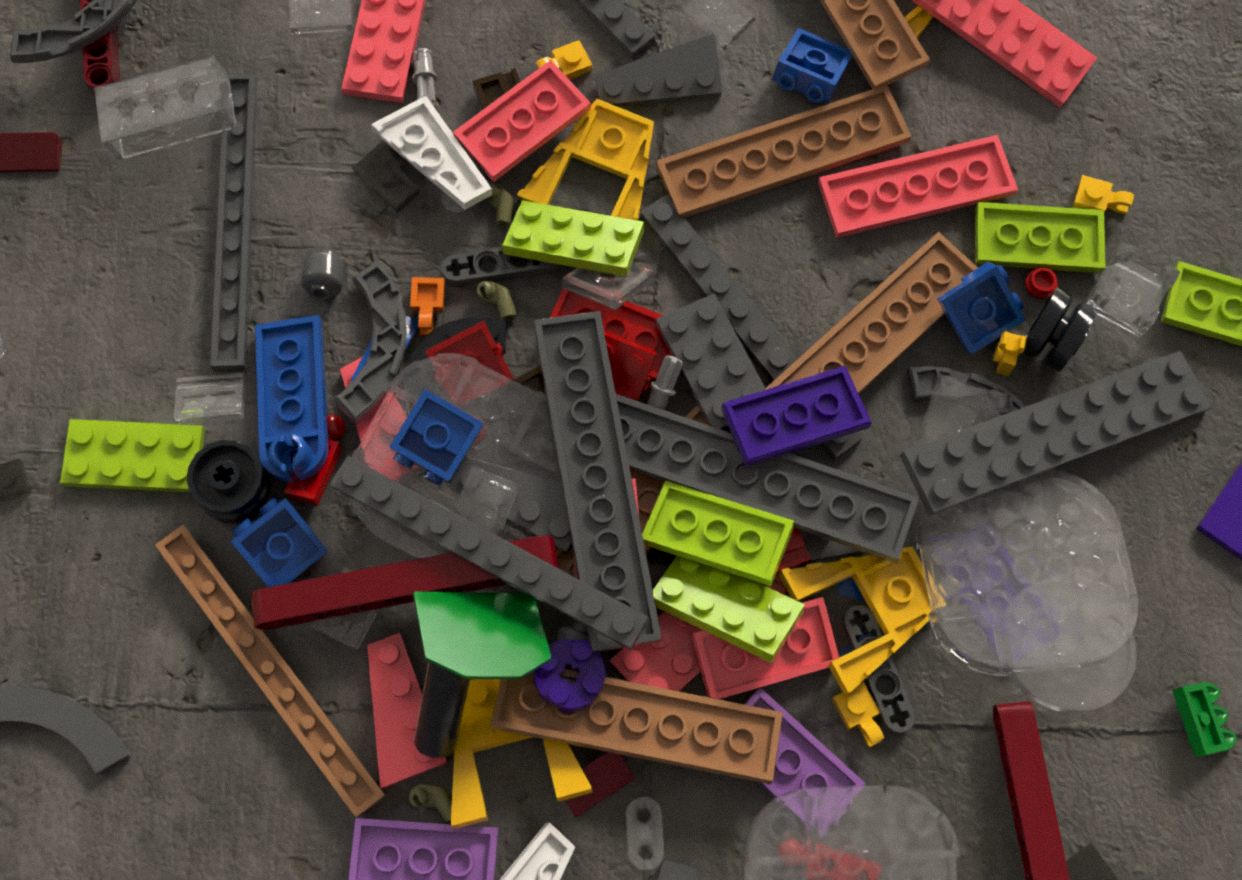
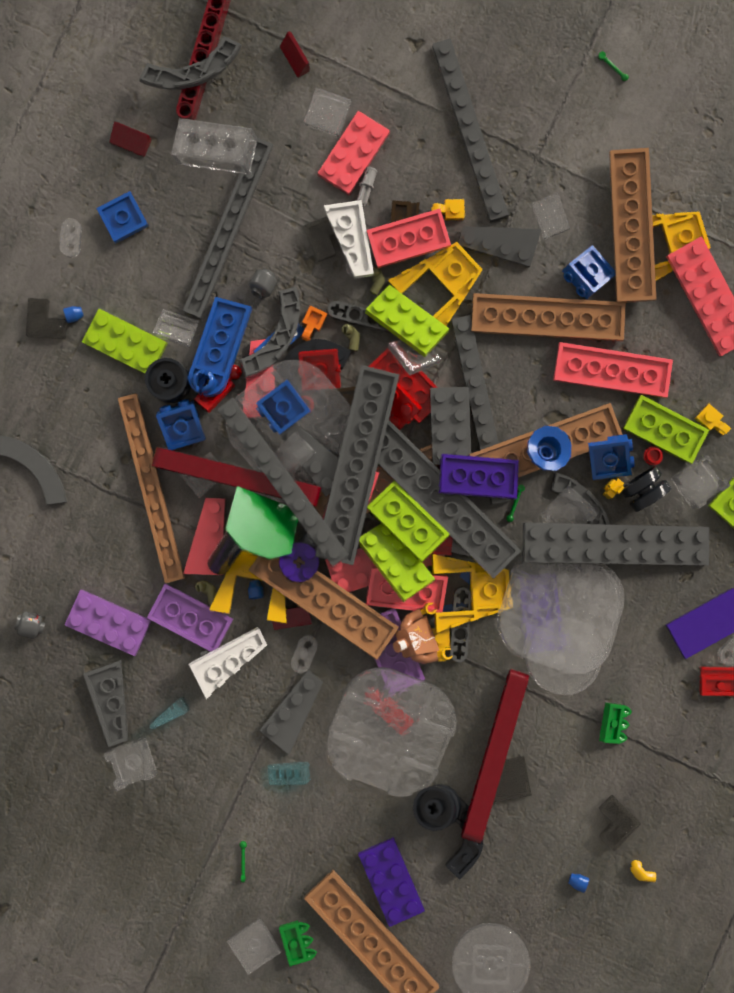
camera: 25 degrees right, 15 degrees up
(29, 445) = (73, 313): none -> blue hose
(57, 268) = (122, 217): none -> blue plate
(515, 762) = (255, 590): none -> blue hose
(665, 382) = (416, 428): light grey axle -> none
(821, 720) = (417, 639): none -> nougat torso
(872, 468) = (509, 518): none -> green hinge
(884, 325) = (552, 444): none -> blue hat

